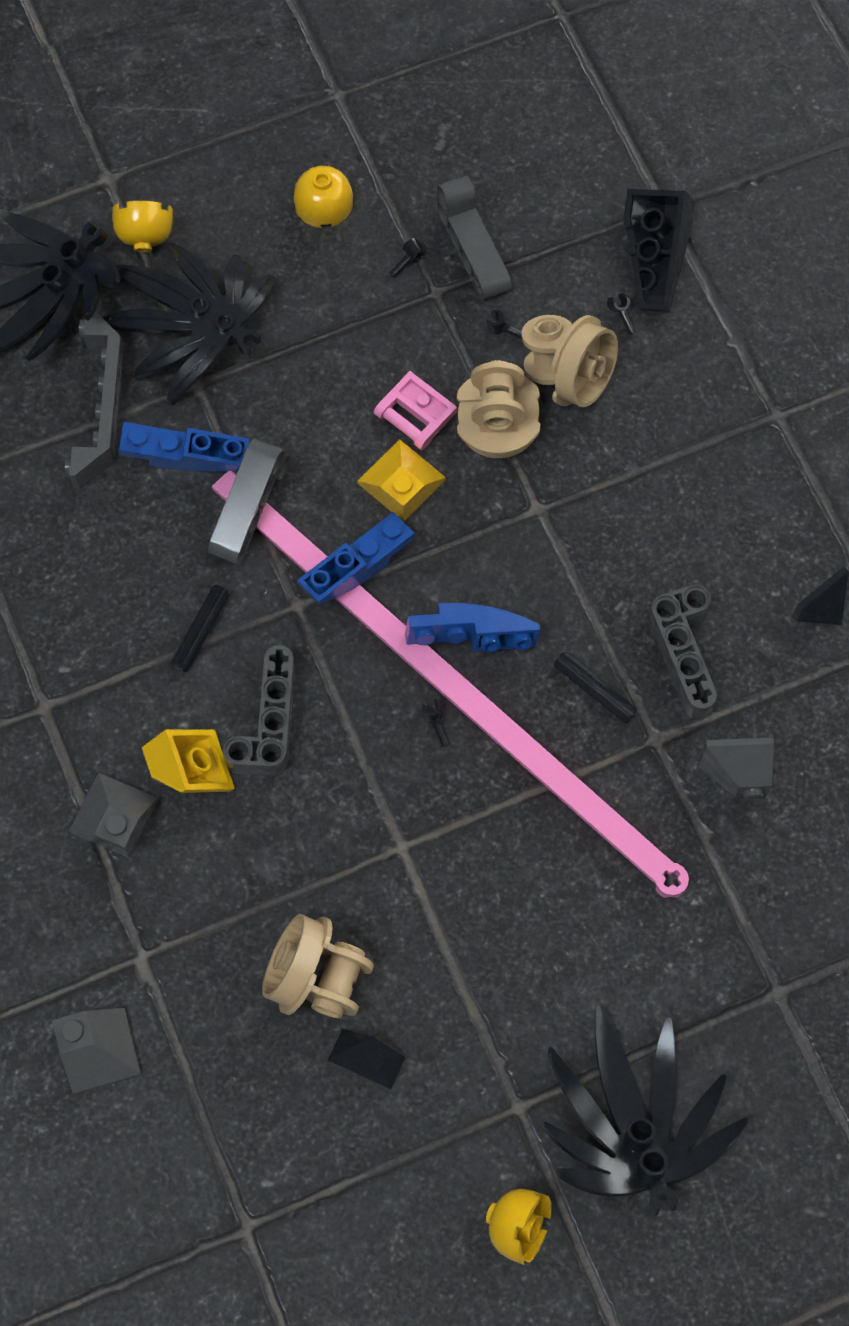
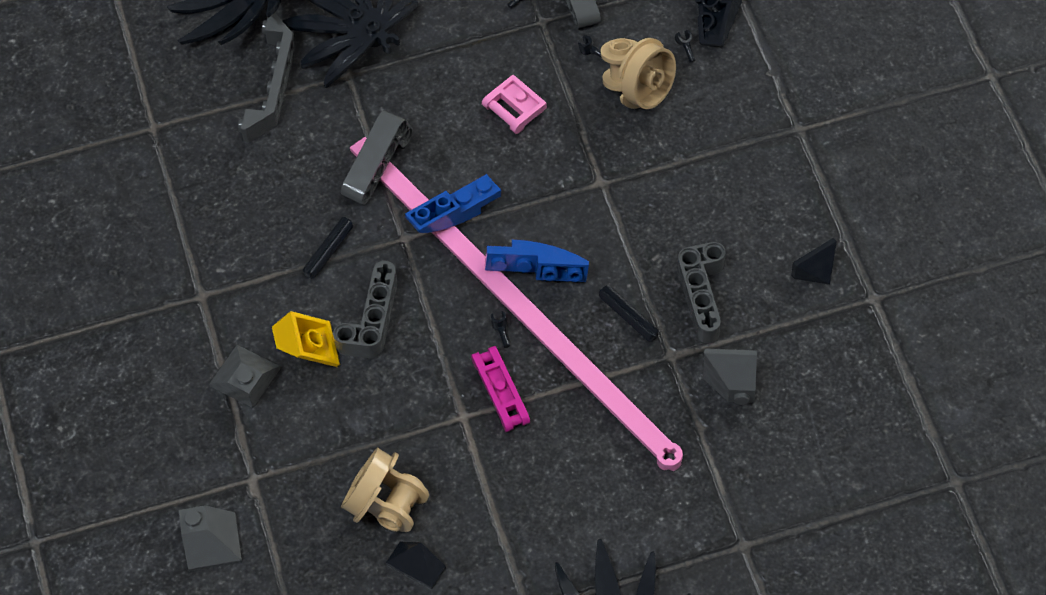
camera: 10 degrees right, 10 degrees down
(183, 451) = (335, 120): blue slope -> none
(401, 480) = (497, 154): yellow slope -> none
(445, 805) = (500, 388): none -> dark pink plate
(498, 410) = (577, 106): tan piece -> none

